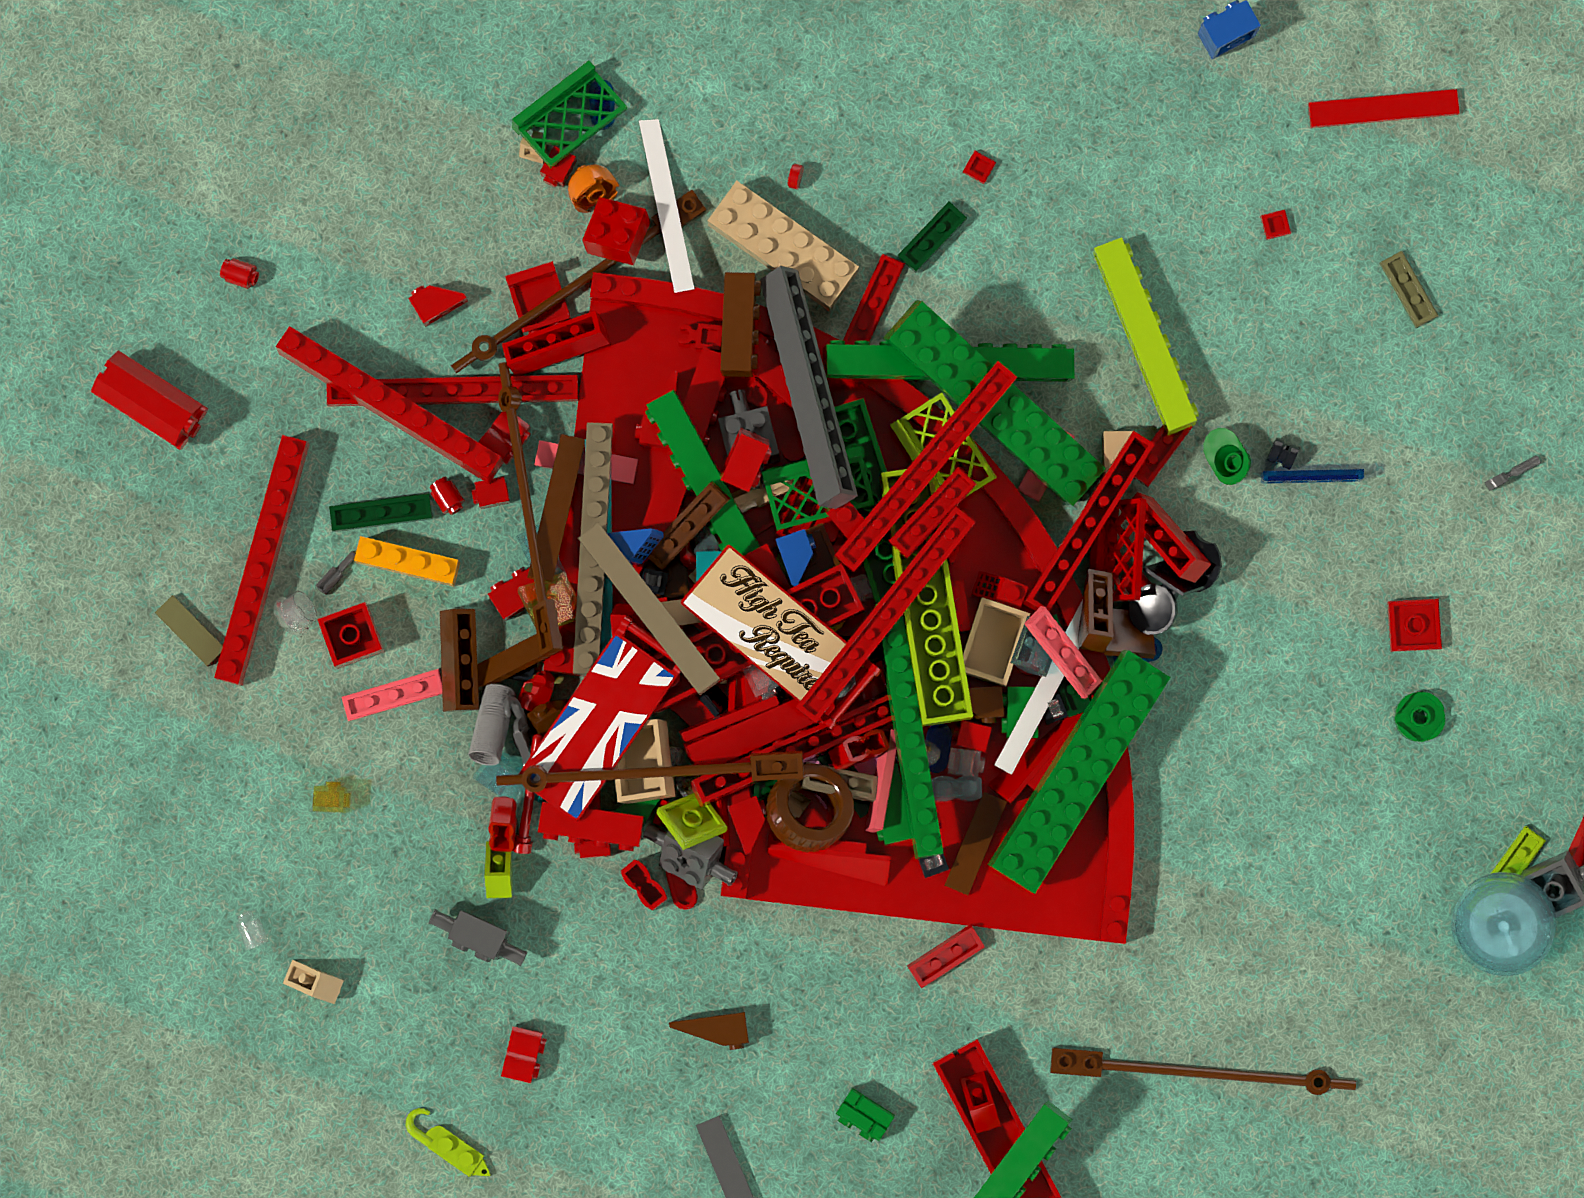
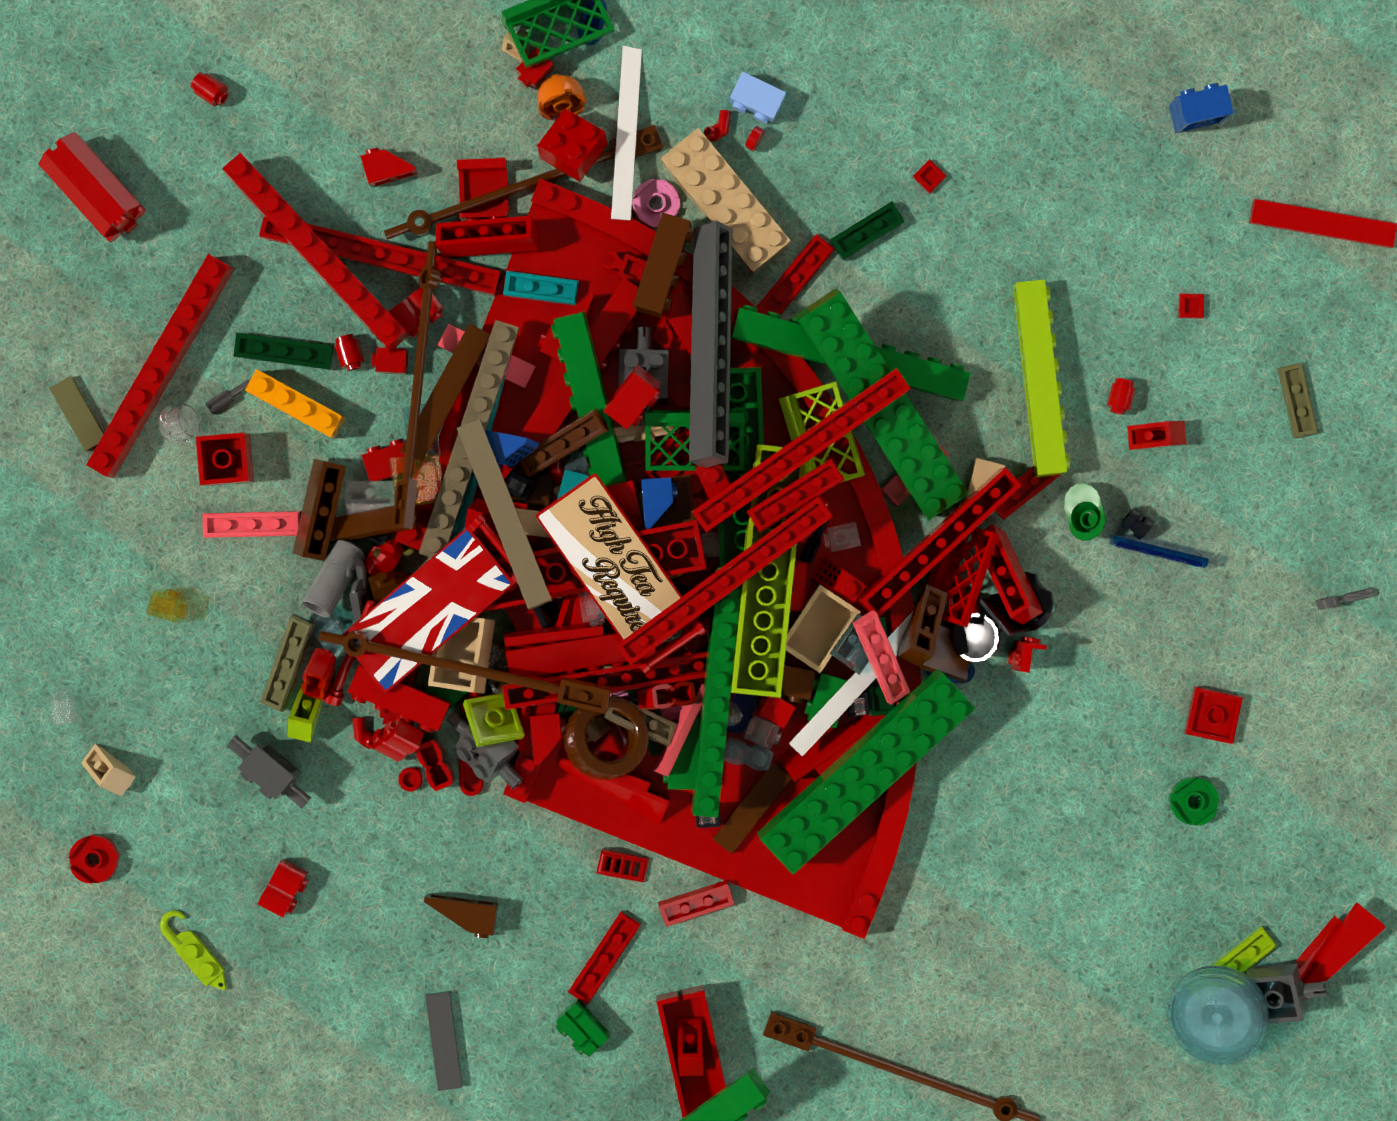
camera: 15 degrees right, 5 degrees up
(328, 1090) = (93, 845): none -> red plate
(467, 823) = (287, 662): none -> olive tile
(506, 632) = (368, 495): none -> clear brick
(561, 877) = (361, 734): none -> red arm
(599, 869) = (397, 739): none -> red brick
(622, 380) = (541, 288): none -> teal tile
(622, 909) = (410, 779): none -> red tile
(706, 253) = (651, 189): none -> bright pink tile
(759, 175) = (720, 129): none -> red arm
(786, 136) = (757, 98): none -> light blue brick
(839, 938) = (620, 874): none -> red slope
(867, 1038) = (604, 958): none -> red tile
(965, 559) = (813, 545): none -> black axle
(990, 546) = (841, 537): none -> clear brick
(1203, 617) = (1022, 652): none -> red bracket
(1231, 332) = (1121, 396): none -> red brick
(1277, 360) = (1156, 435): none -> red slope

